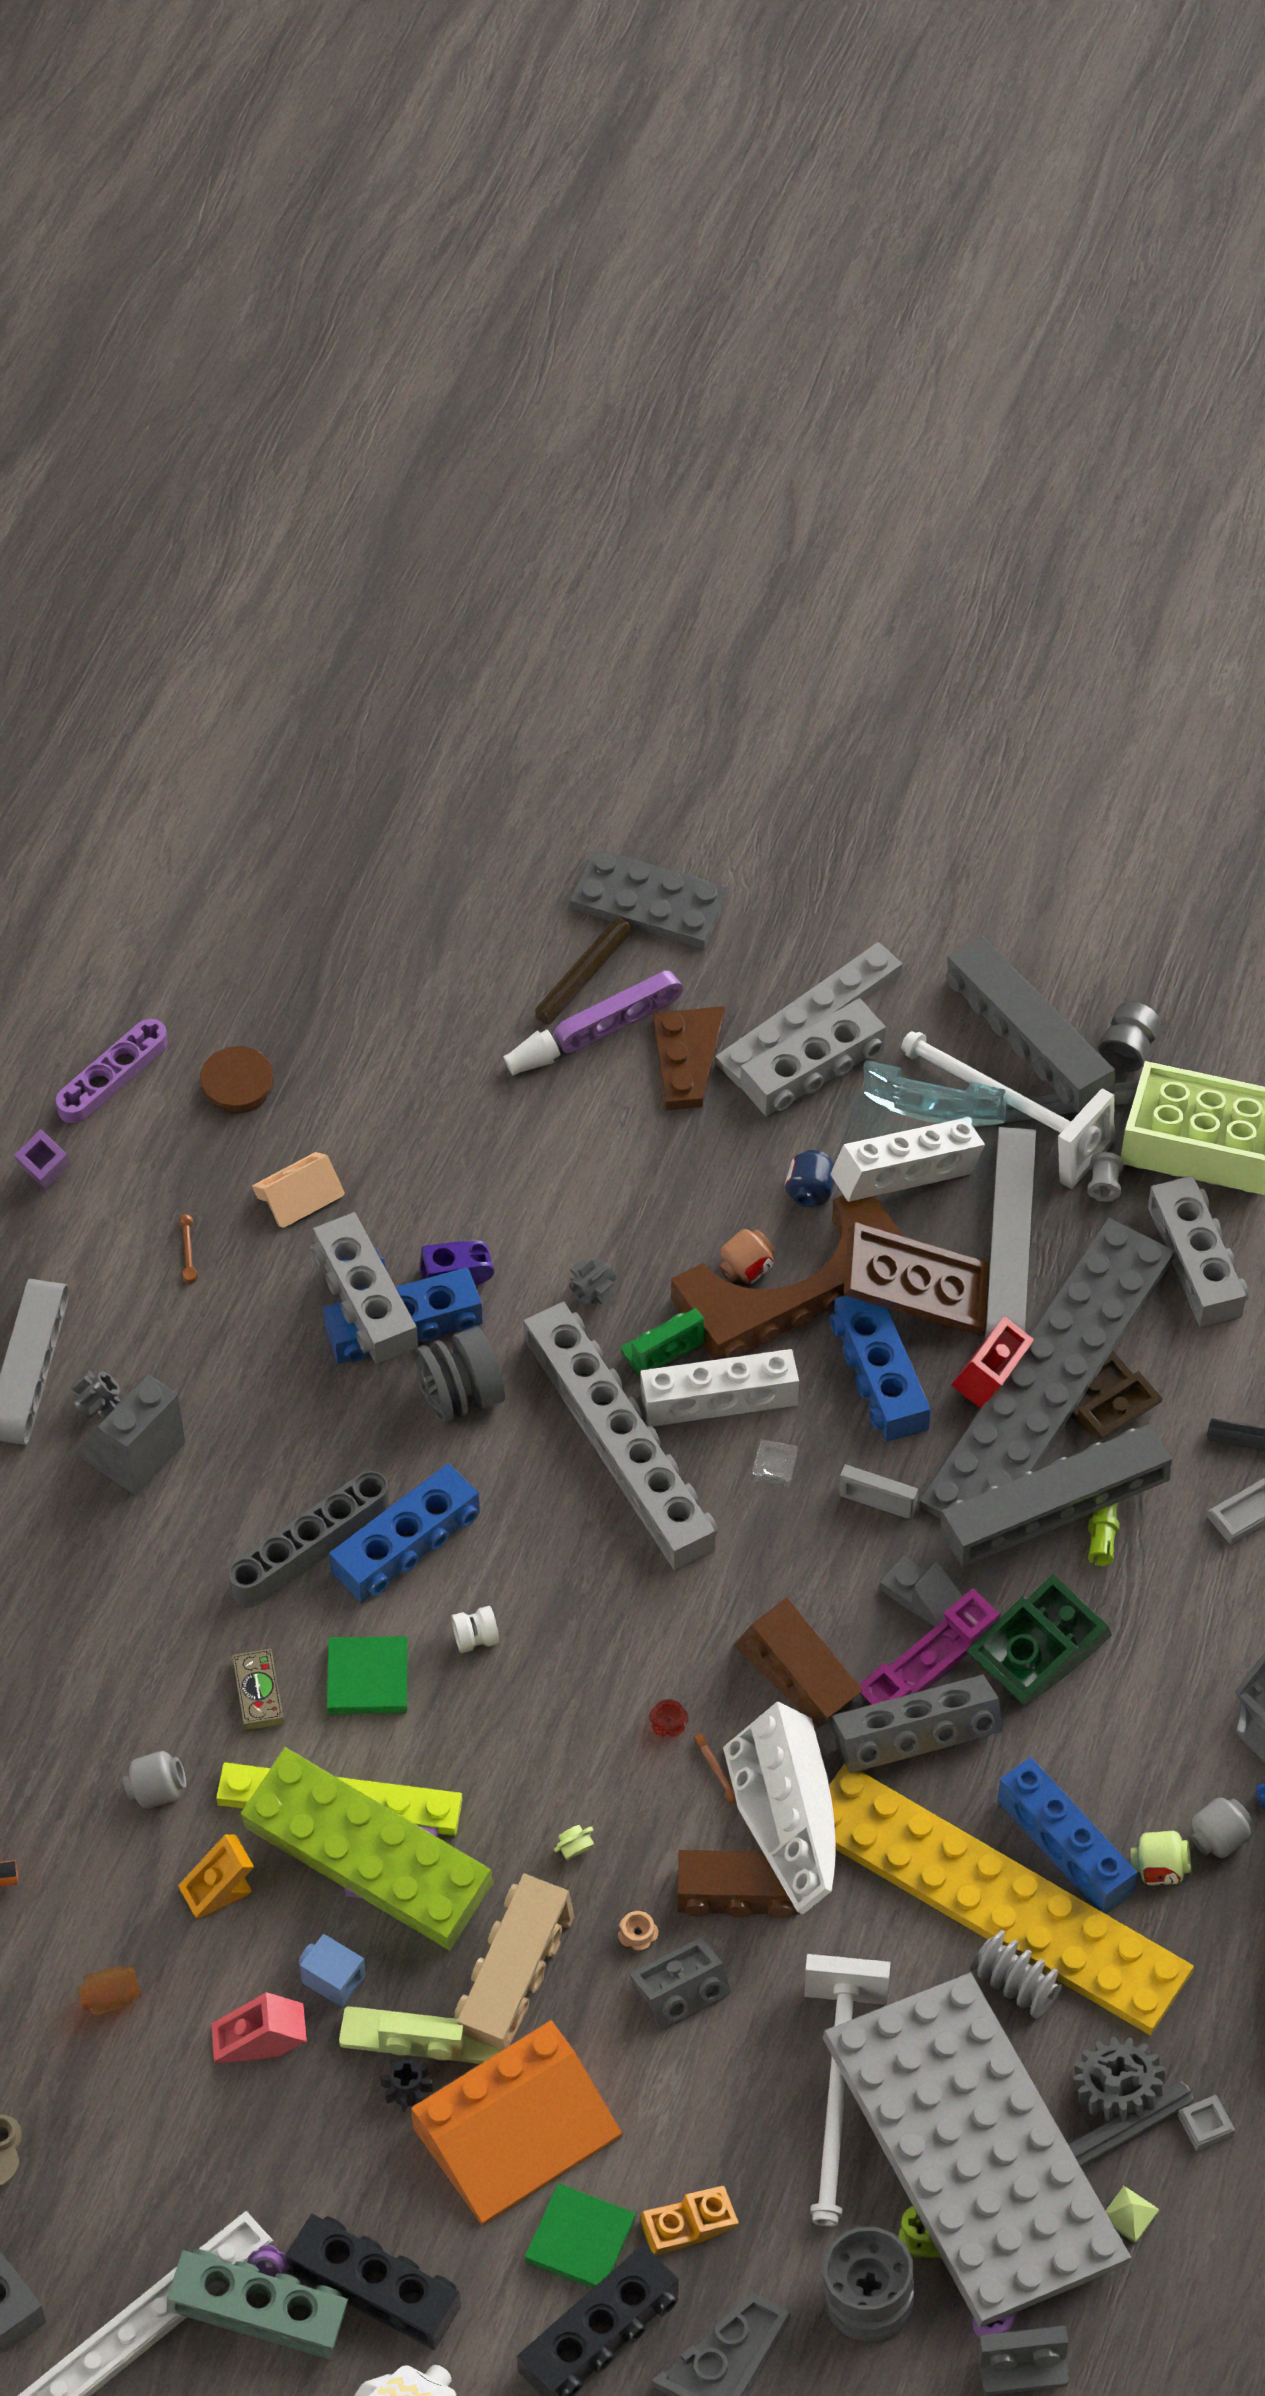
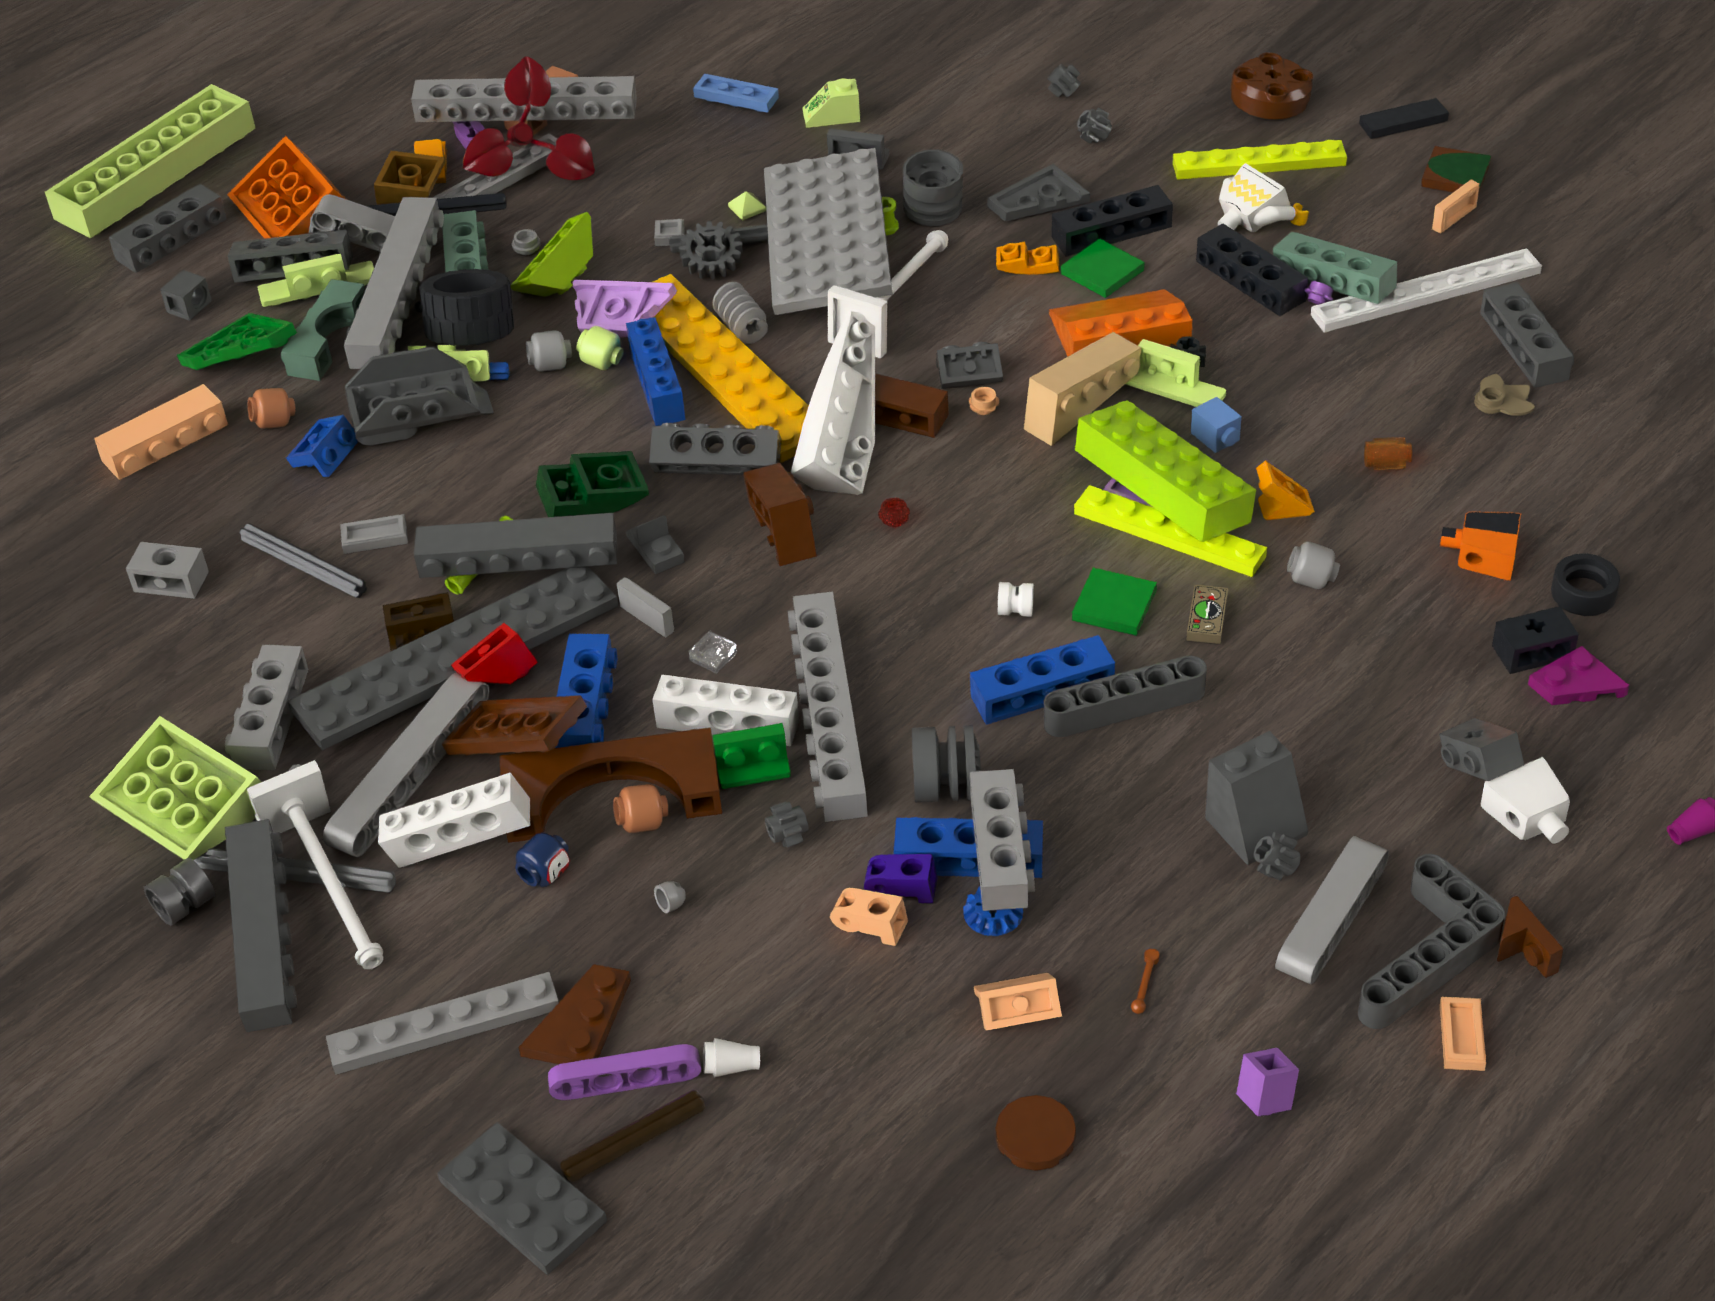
camera: 155 degrees left, 10 degrees down
(107, 1067) = (1159, 1176): medium lavender beam -> none
(259, 2030) = (1282, 403): coral slope -> none
(469, 1218) = (870, 914): none -> light nougat leg
(574, 1842) = (1002, 446): yellowish green plate -> none
(669, 1184) = (669, 896): none -> light grey hinge
(703, 1746) = (877, 493): dark orange hinge -> none
(794, 1057) = (466, 965): light grey brick -> none
(933, 1102) = (366, 856): clear light blue slope -> none
(934, 1653) = (680, 502): magenta slope -> none
(1180, 1925) = (618, 302): none -> lavender wing

